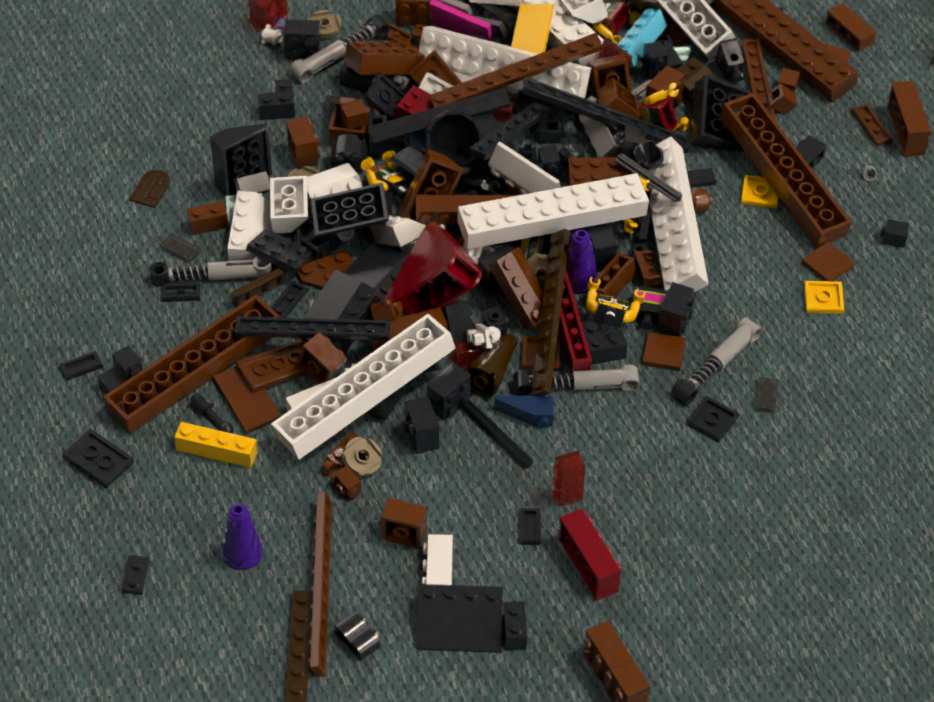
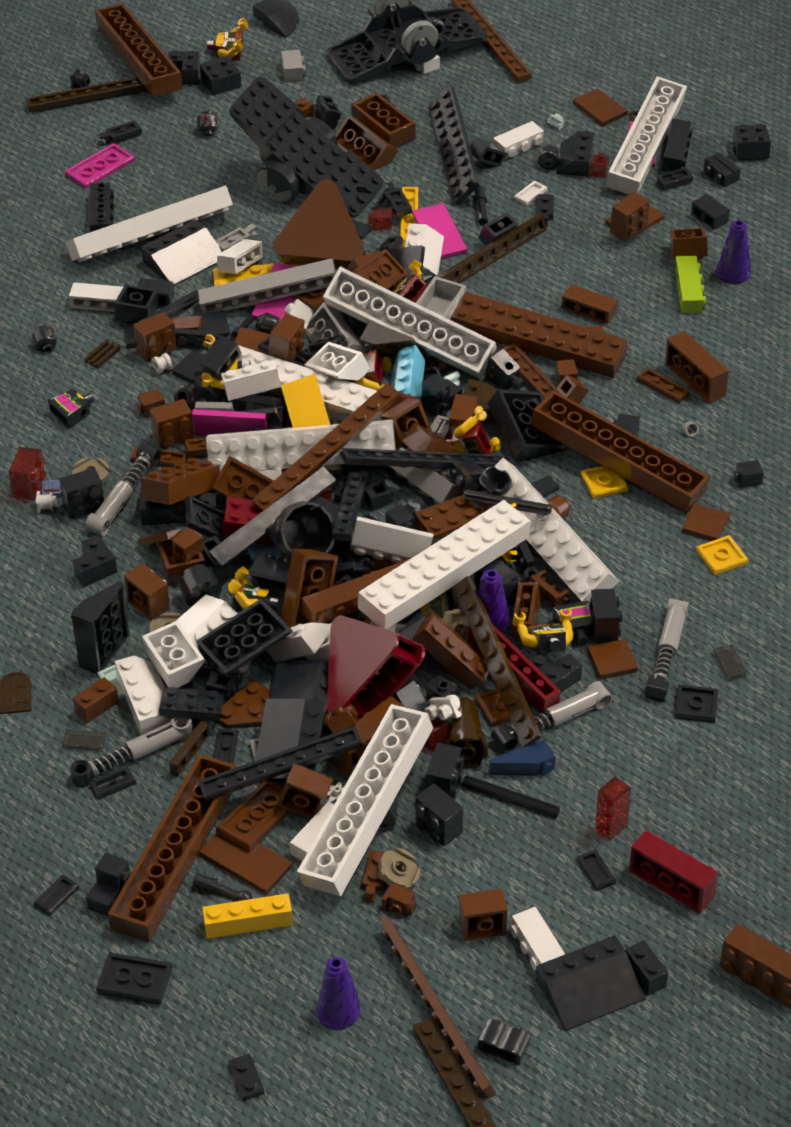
camera: 25 degrees left, 5 degrees down
(253, 183) = (121, 649): light grey tile -> none
(432, 84) = (248, 489): white panel -> none

